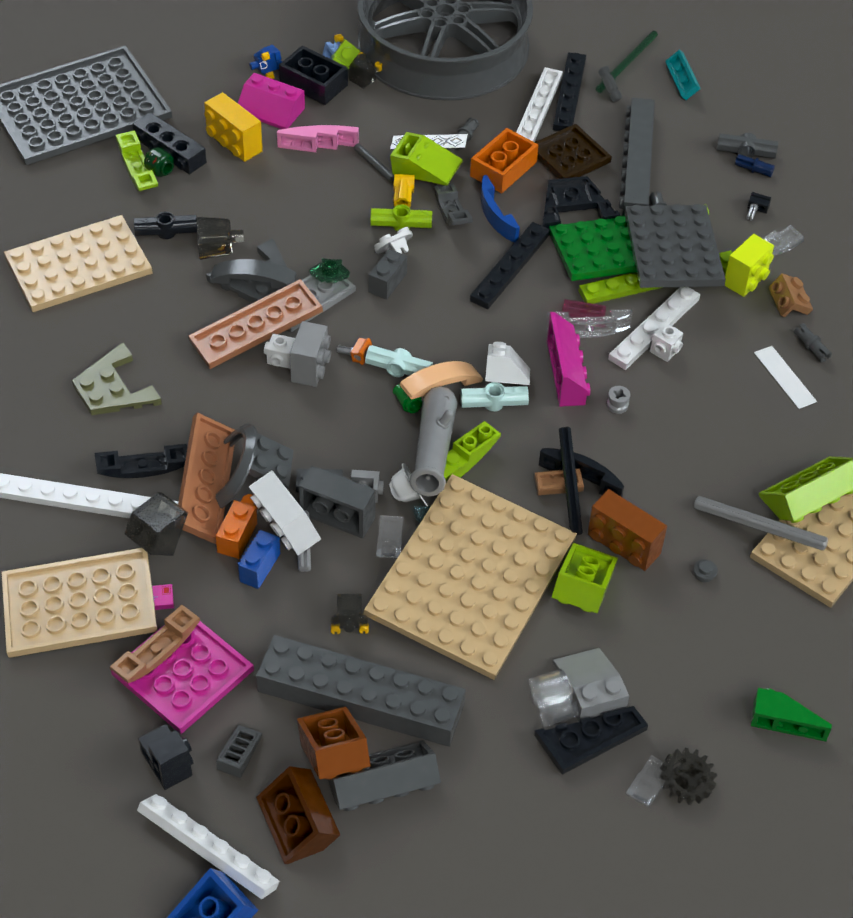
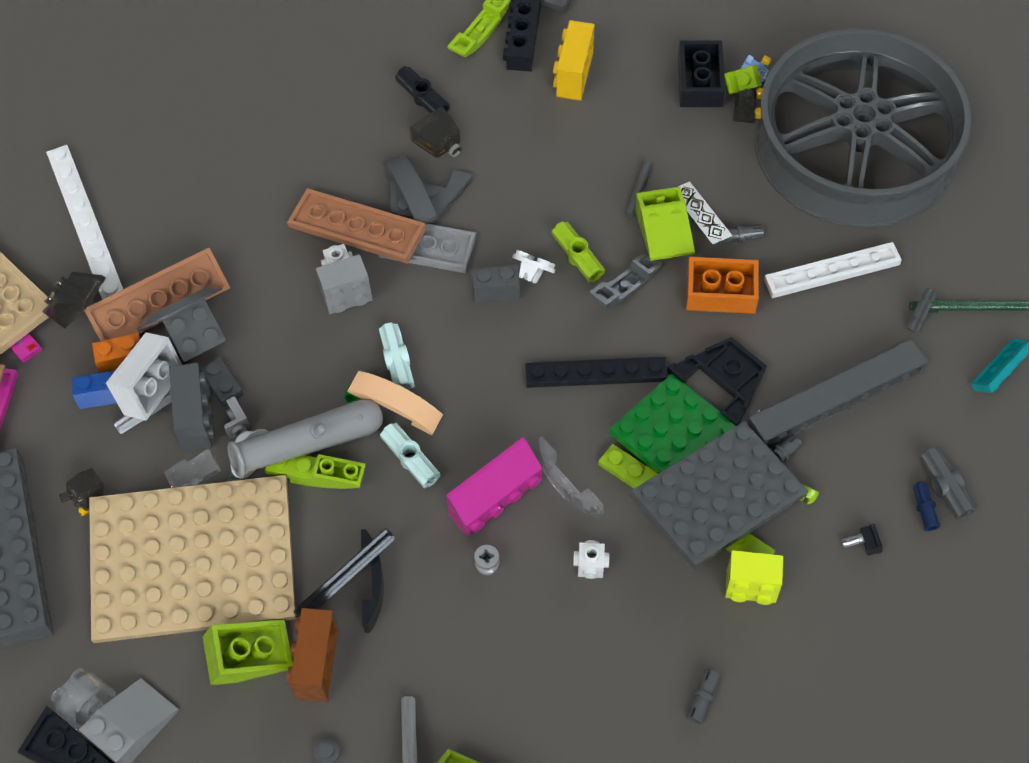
camera: 60 degrees right, 10 degrees up
(77, 263) = (336, 64): tan plate -> none
(104, 389) = (214, 168): wing -> none
(141, 465) = (143, 242): black slope -> none
(159, 162) = (491, 39): dark green head -> none
(267, 61) = (691, 28): blue piece -> none
(272, 101) = (640, 66): dark pink slope -> none
(318, 136) = (625, 125): bright pink slope -> none
(330, 271) = (461, 238): clear green animal -> none
(357, 352) = (389, 316): orange piece -> none
(403, 189) = (620, 229): yellow piece -> none
(504, 225) = (667, 298): blue slope -> none
(506, 365) = (447, 442): white slope -> none
(553, 482) = (338, 557): medium nougat plate -> none
(569, 91) = (883, 283): black plate -> none
(571, 153) = (790, 334): dark brown plate -> none
(581, 309) = (590, 484): clear pink tile -> none
(640, 339) = (616, 538): white plate -> none
(784, 240) = (832, 591): clear slope -> none
(785, 377) = (641, 695): white sticker -> none
(790, 295) = (756, 641): medium nougat bracket -> none

